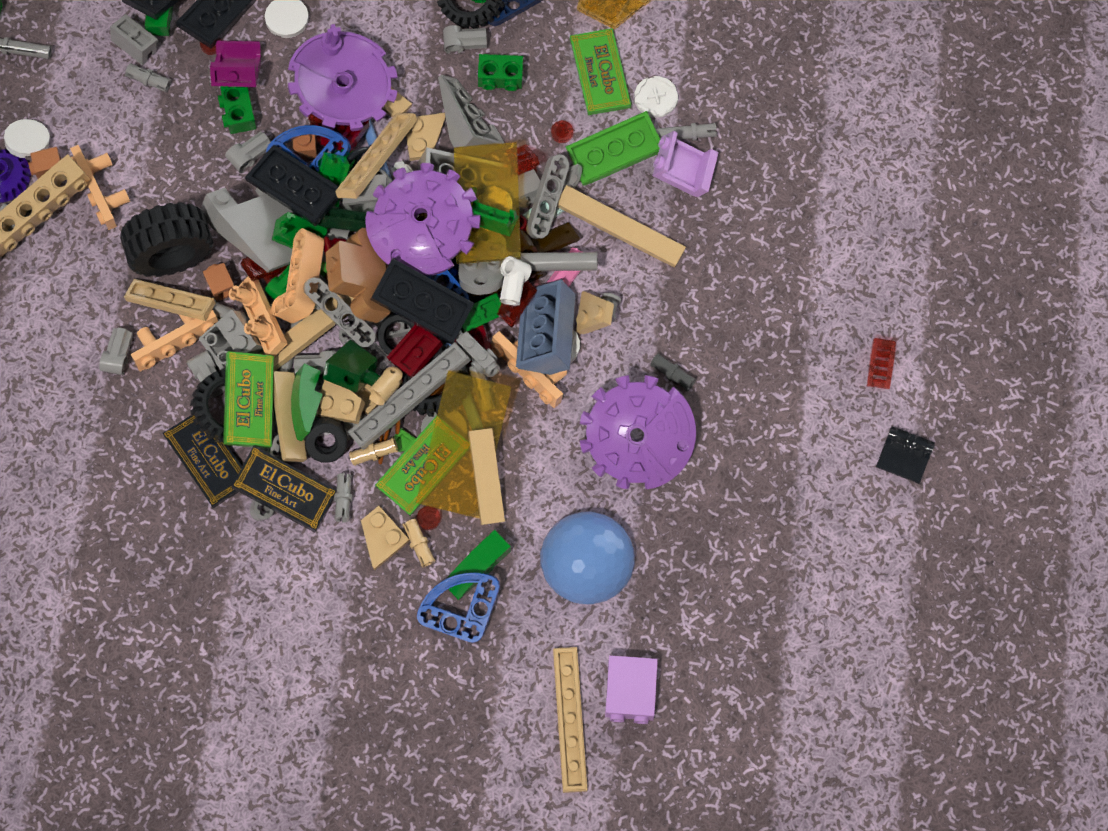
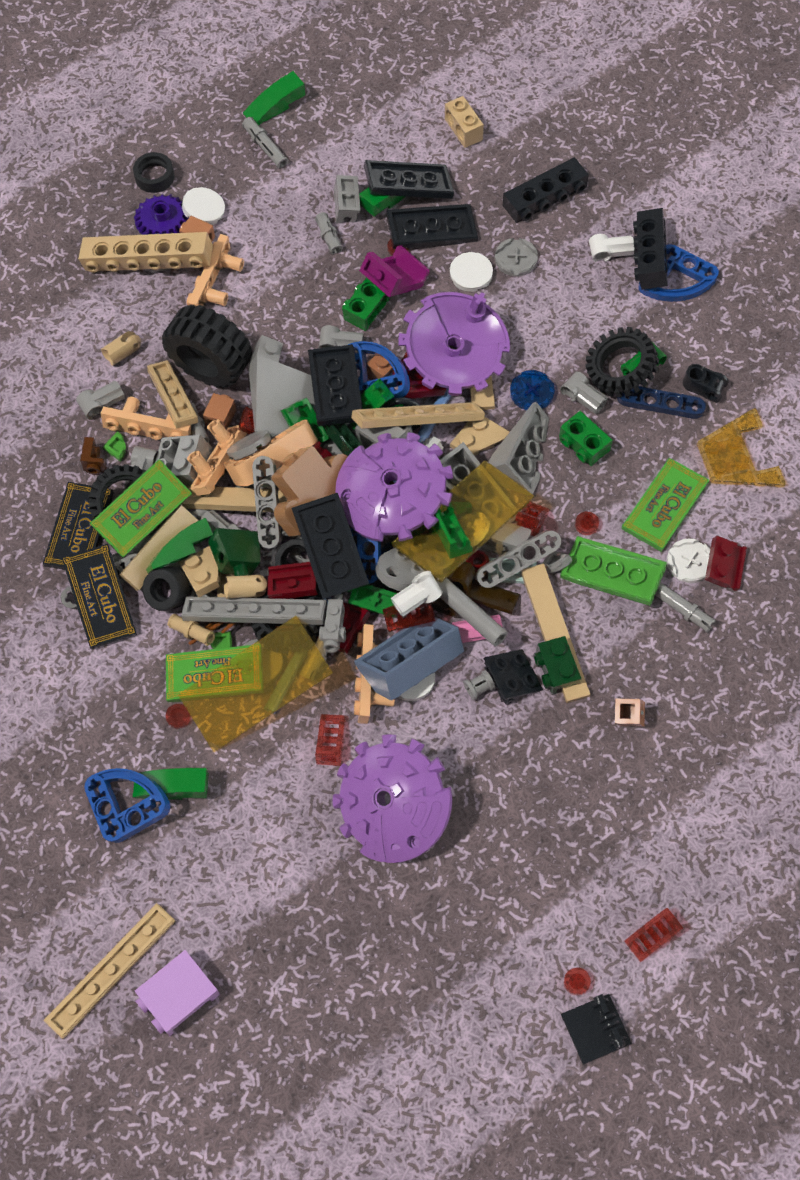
camera: 50 degrees right, 5 degrees down
(88, 301) = (121, 348): none -> tan piece
(159, 400) = (90, 457): none -> reddish brown bracket
(167, 376) = (116, 446): none -> bright green tile
(278, 284) = (248, 444): none -> light grey tile
(343, 498) = (134, 642): light grey pin -> none
(382, 536) = (130, 697): tan wing -> none
(418, 543) = (149, 727): tan pin -> none
(423, 68) = (530, 388): none -> clear blue tile
(486, 476) = (246, 723): tan tile -> none
(558, 446) = (330, 754): none -> clear red slope
(587, 558) = (257, 860): medium blue piece -> none
(593, 313) = (460, 678): tan wing -> none
(623, 280) = (512, 675): none -> black hinge
(645, 246) = (557, 664): none -> dark green bracket
(673, 372) = (476, 781): dark grey pin -> none
(681, 77) = (725, 563): none -> dark red plate
(684, 165) = (652, 629): lavender panel -> none
(725, 234) = (630, 712): none -> brick
(865, 437) = (577, 981): none -> clear red tile

